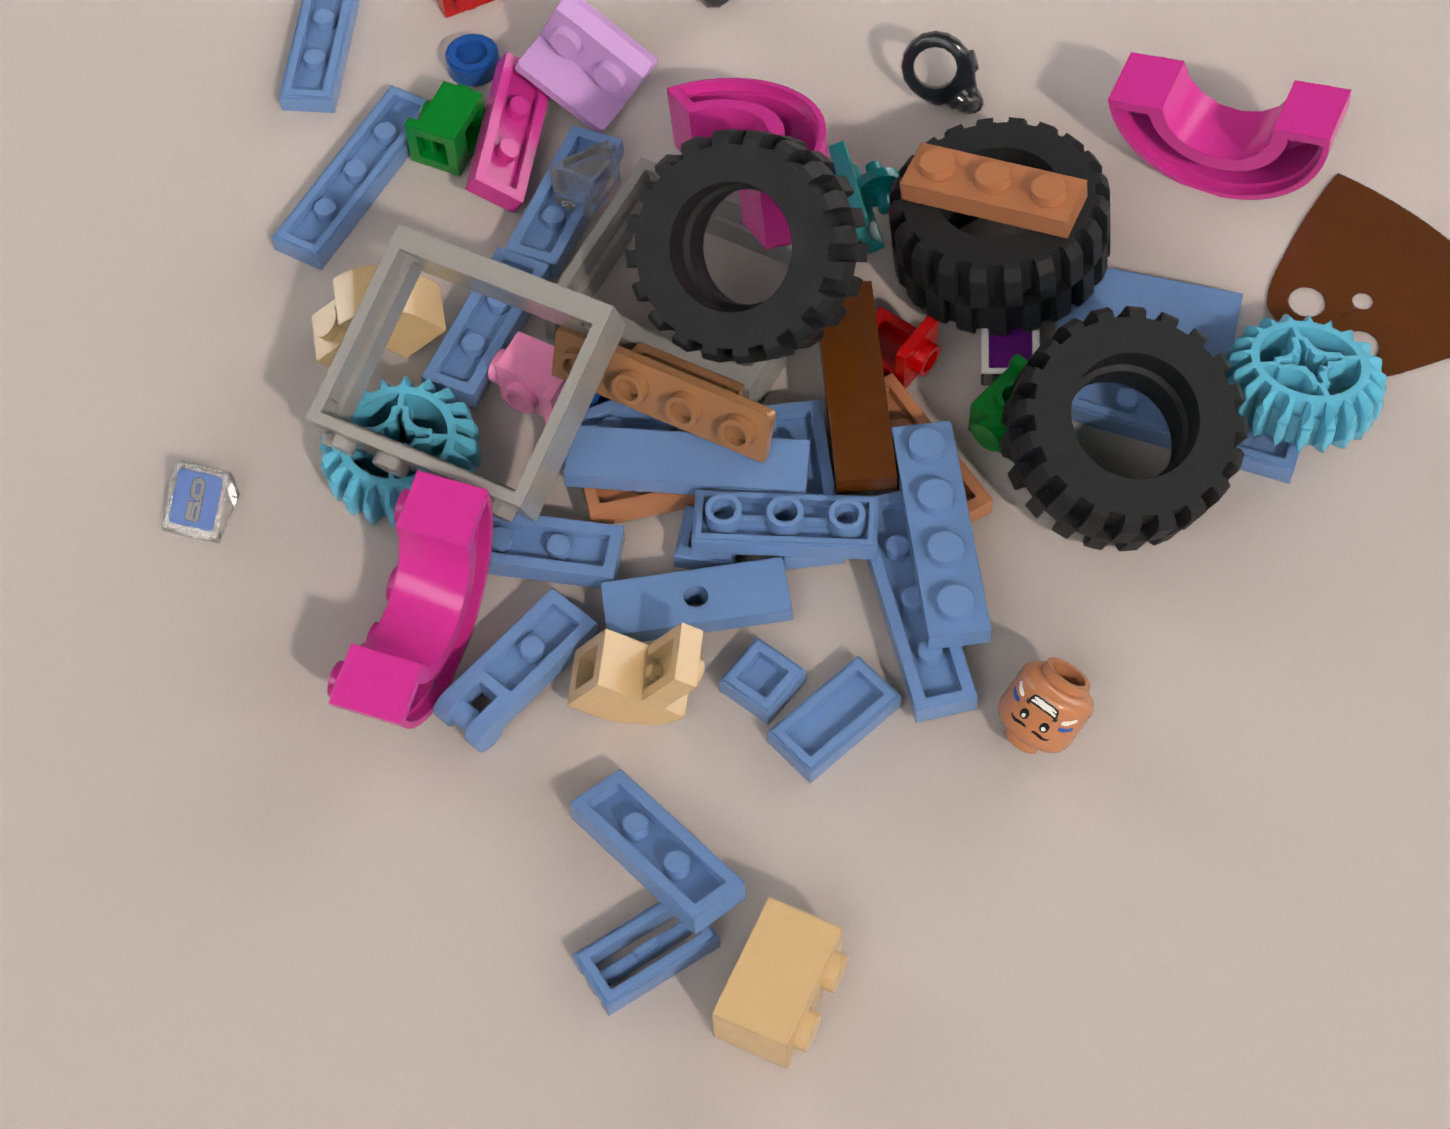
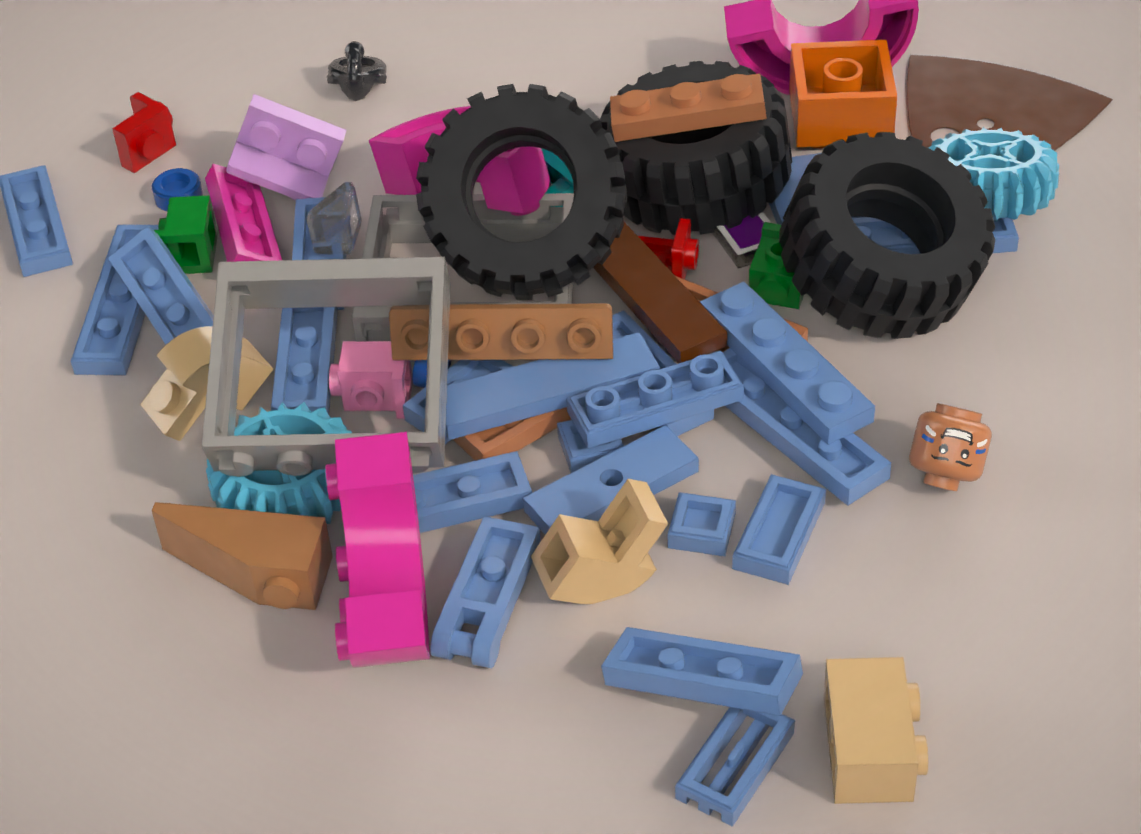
camera: 25 degrees left, 15 degrees down
(199, 501) = (114, 572): slope -> none
(336, 542) = (256, 553): none -> medium nougat slope
(385, 184) = (160, 286): none -> medium blue plate
(962, 90) = (597, 83): black piece -> none
(1208, 209) = (841, 90): none -> orange brick

